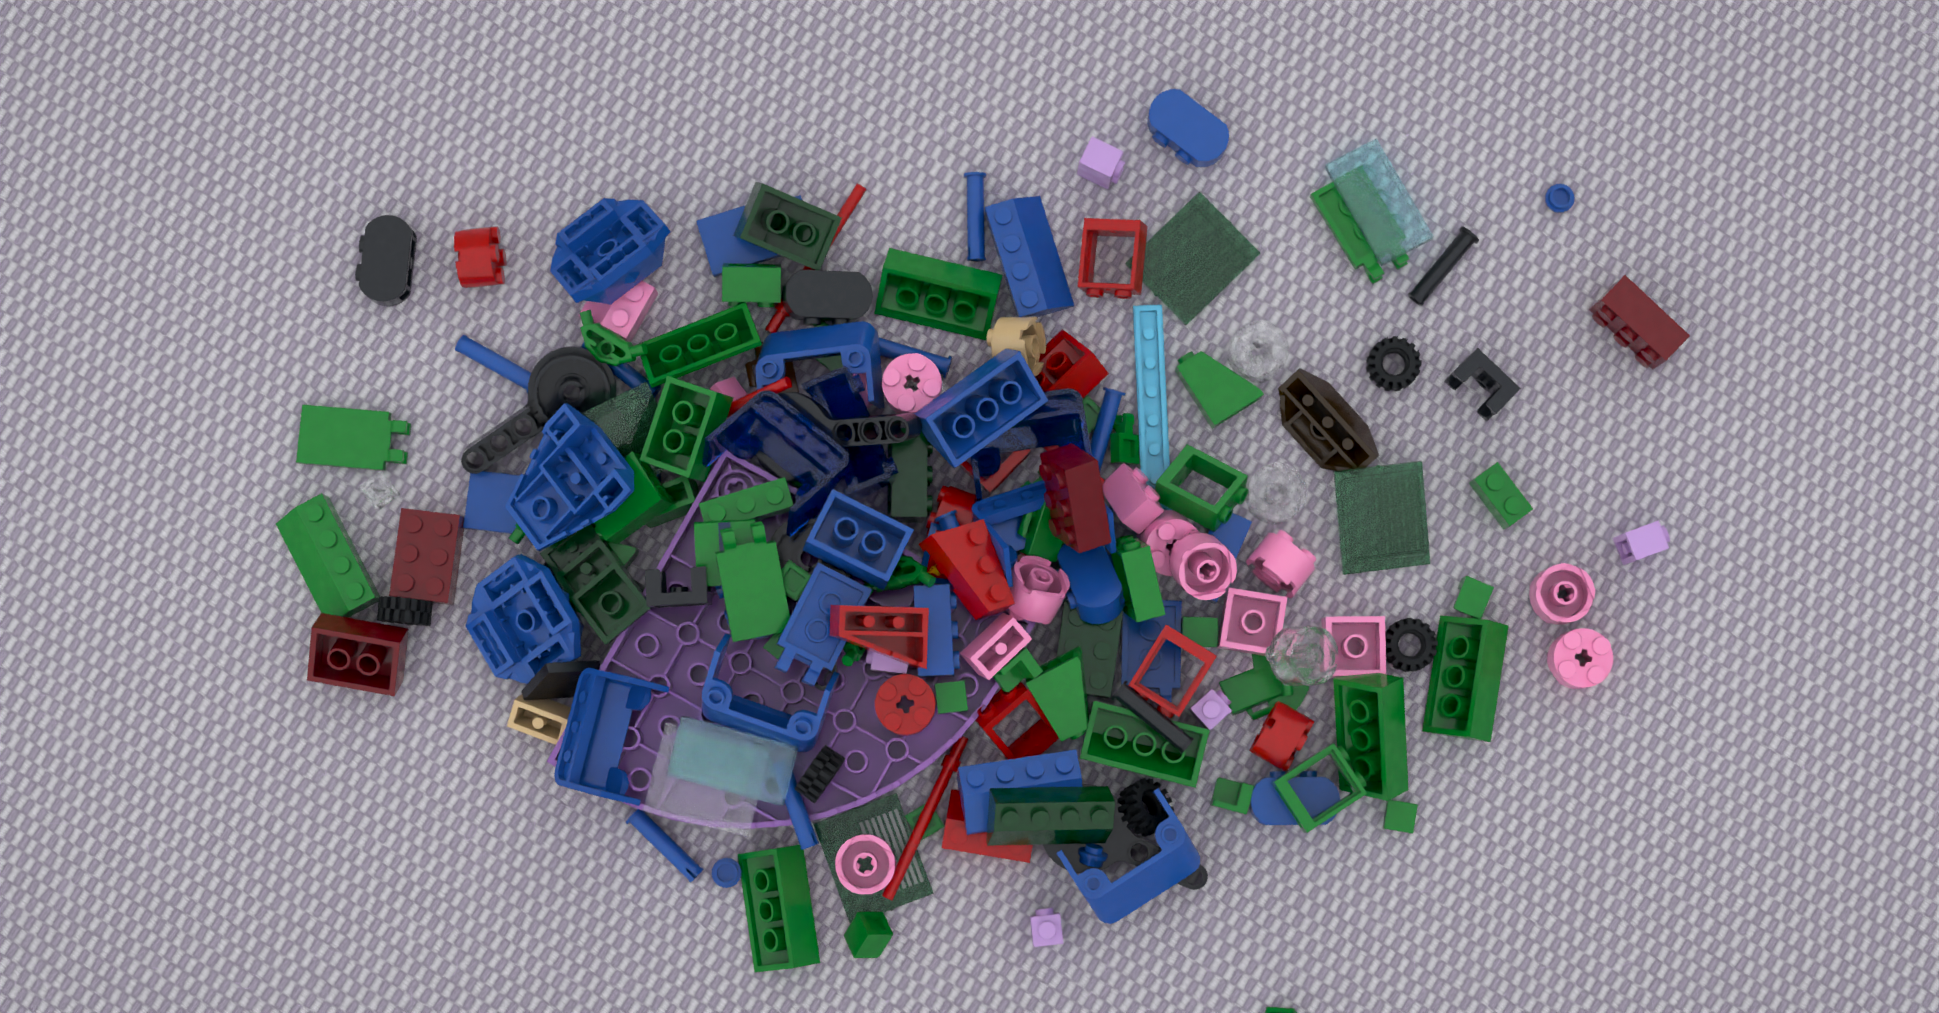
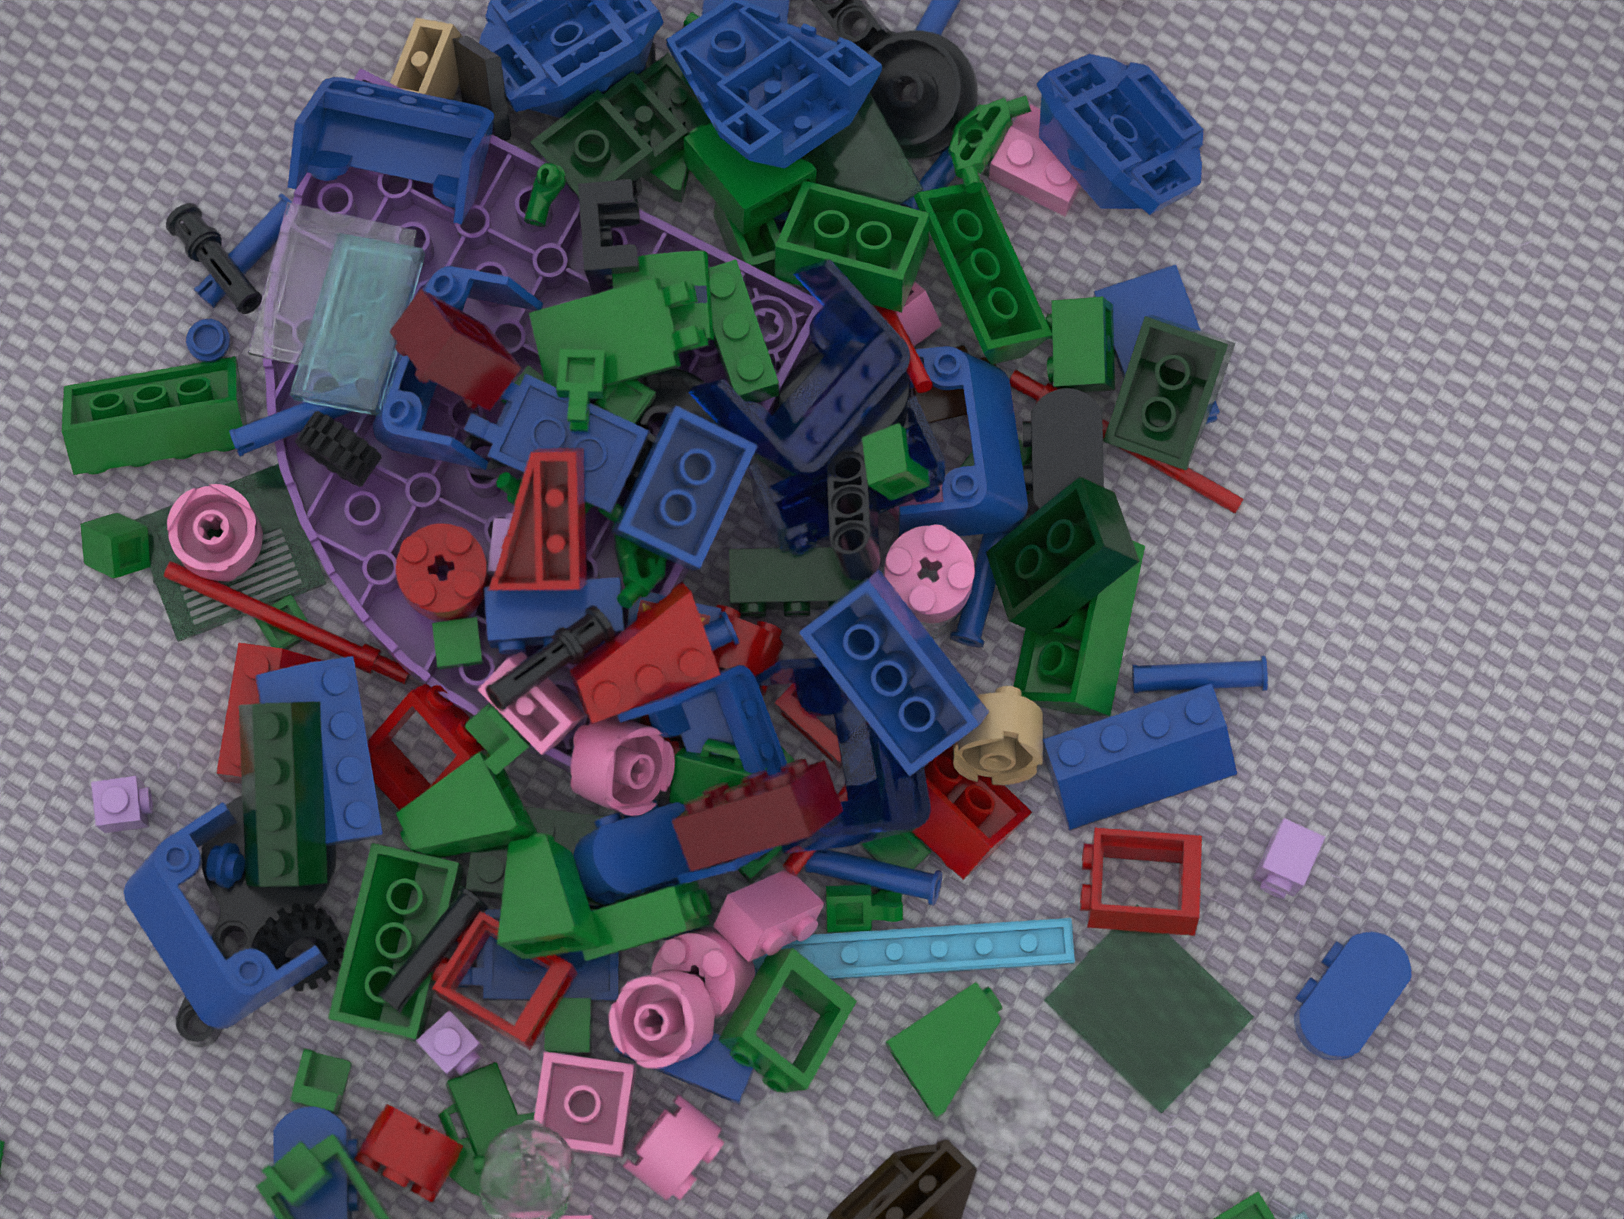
camera: 90 degrees right, 5 degrees down
(640, 634) = (546, 187): none -> green arm
(661, 873) = (204, 246): none -> black pin
(764, 688) = (454, 351): none -> dark red container
(782, 605) = (579, 379): none -> green plate
(843, 403) = (889, 464): none -> green panel
(900, 298) = (1062, 556): none -> dark green brick
(964, 616) = (567, 647): none -> black pin
(1126, 640) = (544, 901): none -> green slope
(1302, 803) = (298, 1174): none -> green panel

